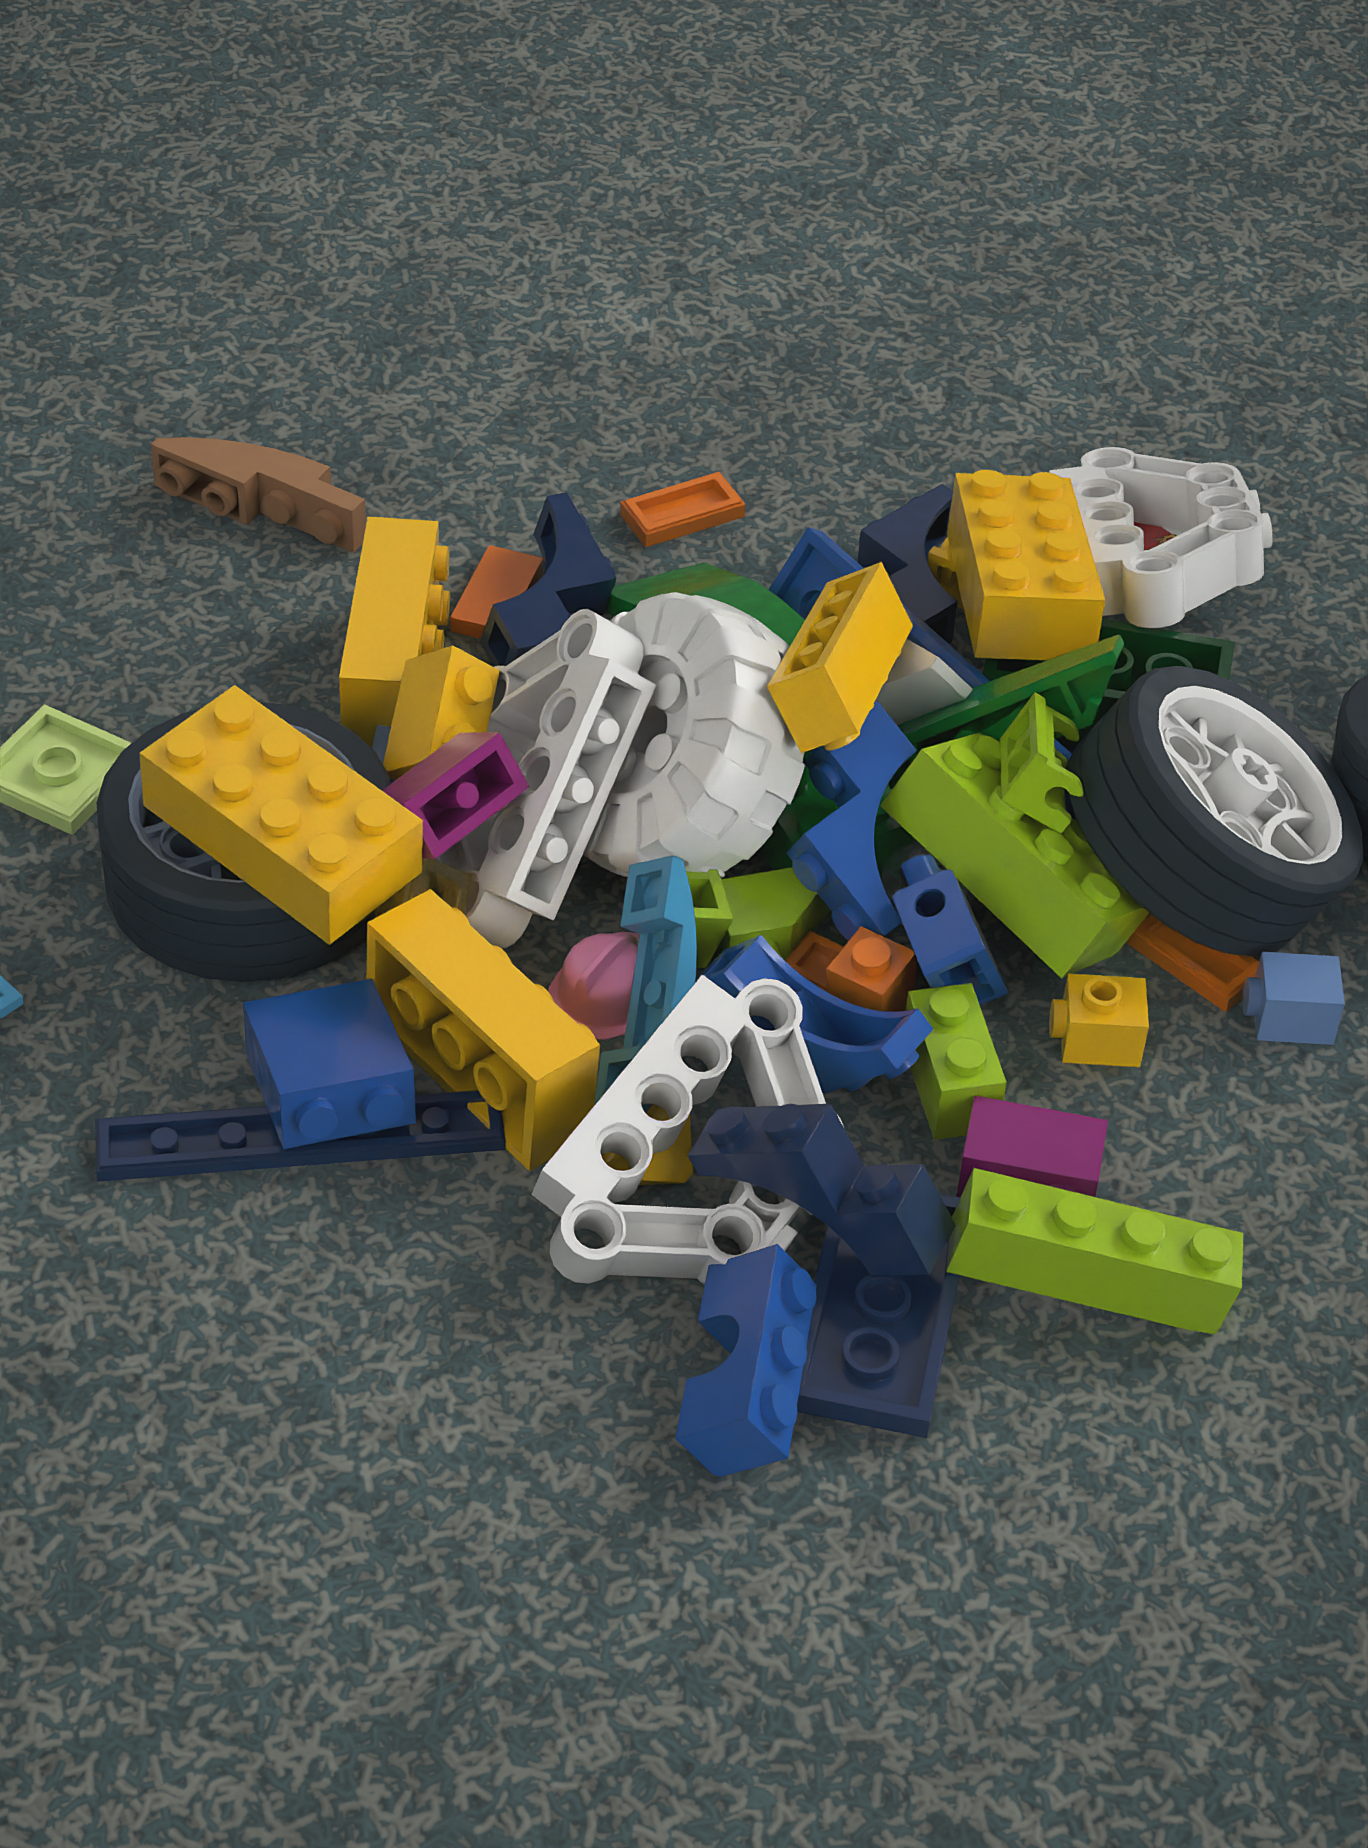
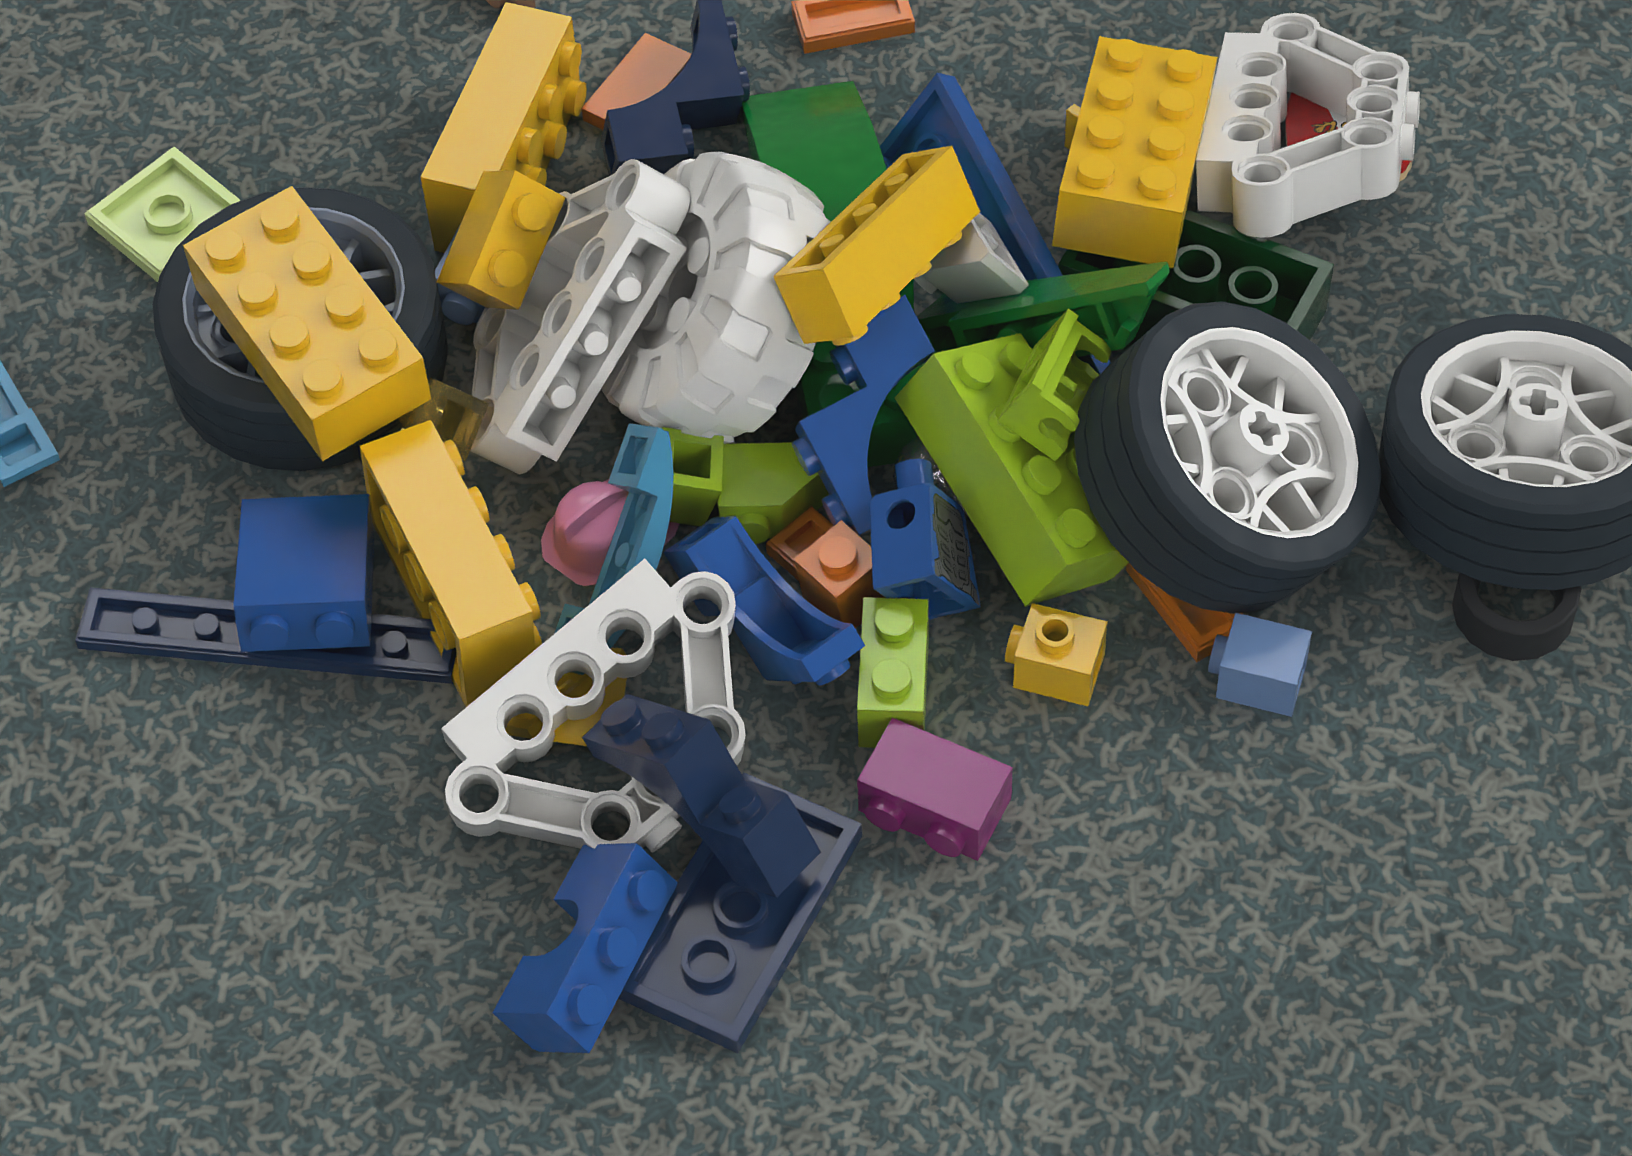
camera: 20 degrees right, 10 degrees up
(459, 788) = (473, 325): magenta brick -> none
(903, 546) = (1038, 105): dark blue arch -> none
(1095, 1252) = (949, 902): lime brick -> none

